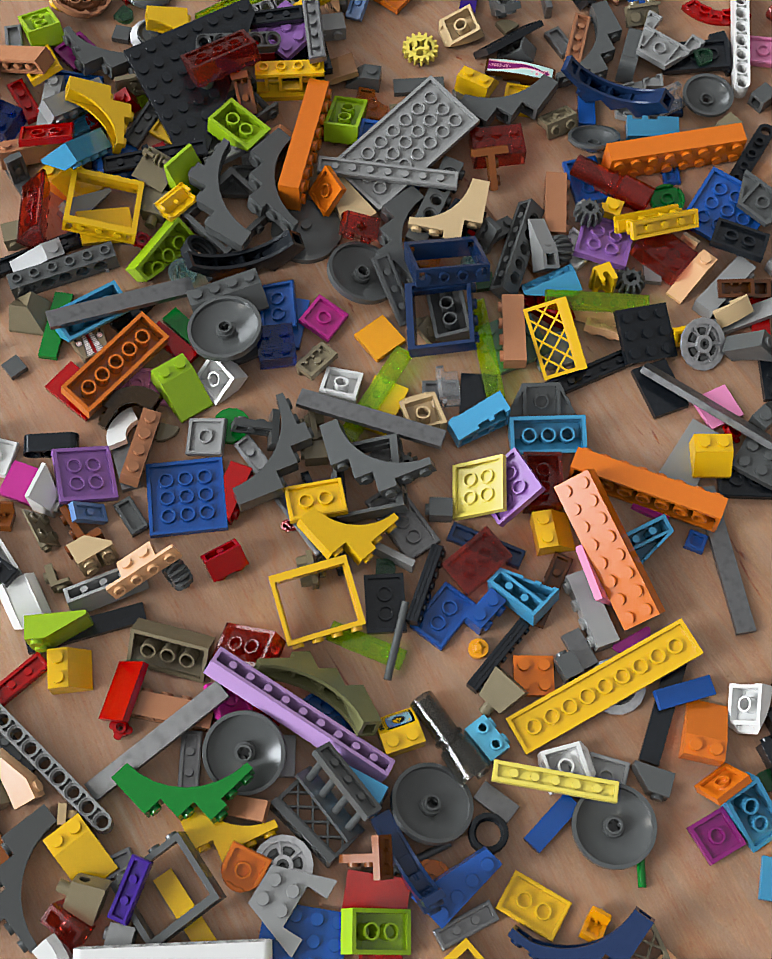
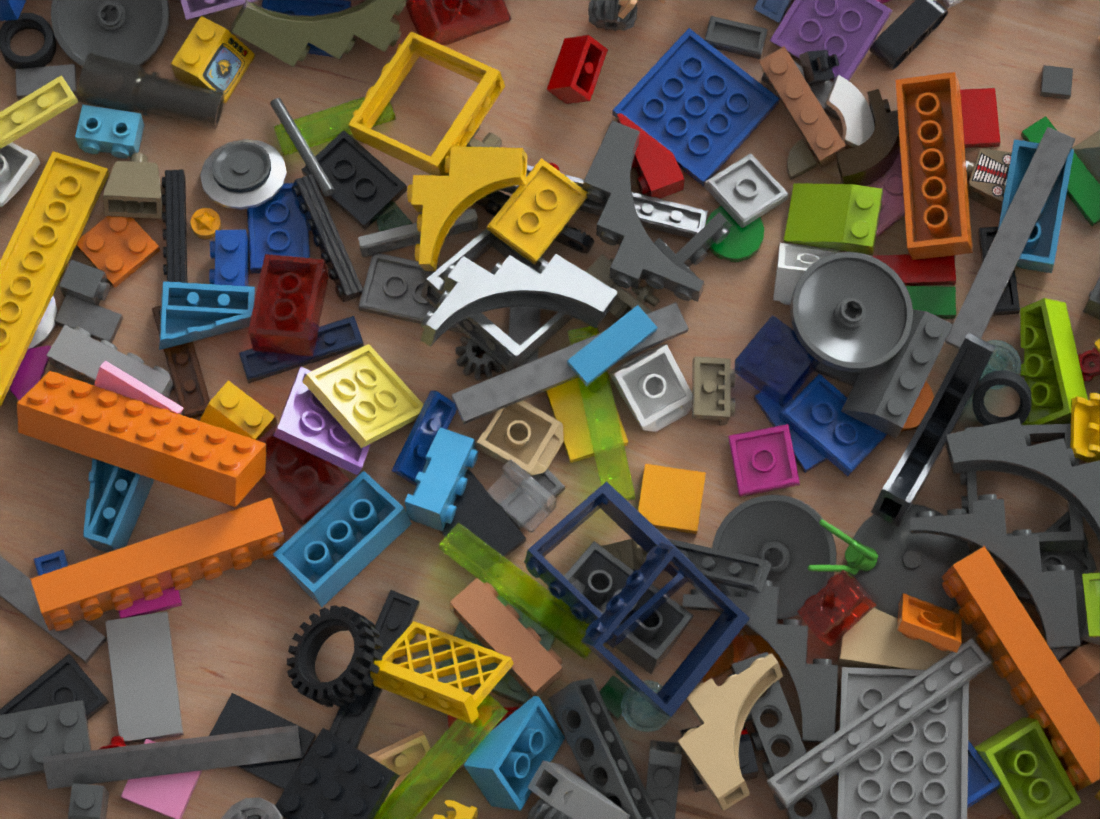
camera: 140 degrees right, 5 degrees up
(112, 458) = (818, 65): none -> black tile
(327, 241) = (857, 555): none -> bright green plant
(345, 405) = (612, 345): none -> dark azure tile
(437, 655) = (243, 174): none -> piece
(439, 509) = (392, 338): dark grey brick -> none
(466, 452) = (435, 413): none -> blue tile
(541, 400) = (389, 578): dark grey wing -> none
(617, 389) = (357, 671): none -> black tyre
(711, 455) = (116, 689): yellow slope -> none

